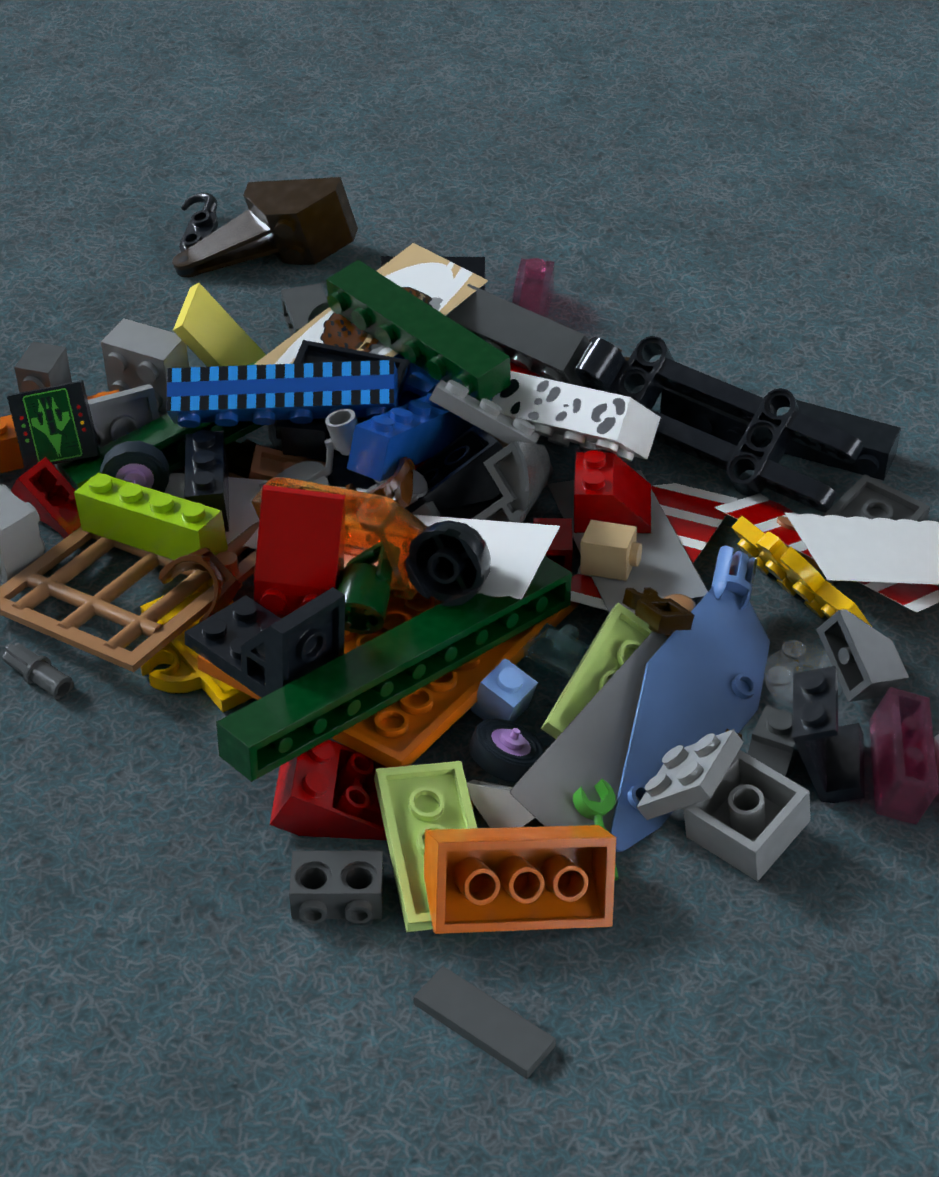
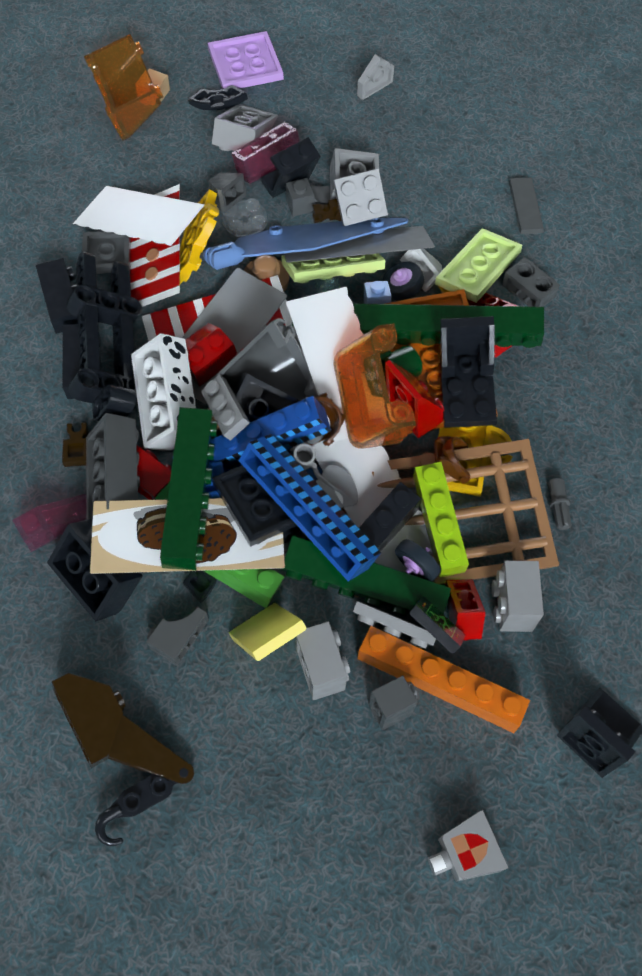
camera: 135 degrees left, 20 degrees up
(448, 562) = (353, 318): black cylinder -> none
(519, 878) = (464, 221): orange slope -> none
(596, 810) = (403, 228): bright green piece -> none
(609, 550) = (251, 314): tan brick -> none
(661, 614) = (282, 256): dark brown plate -> none

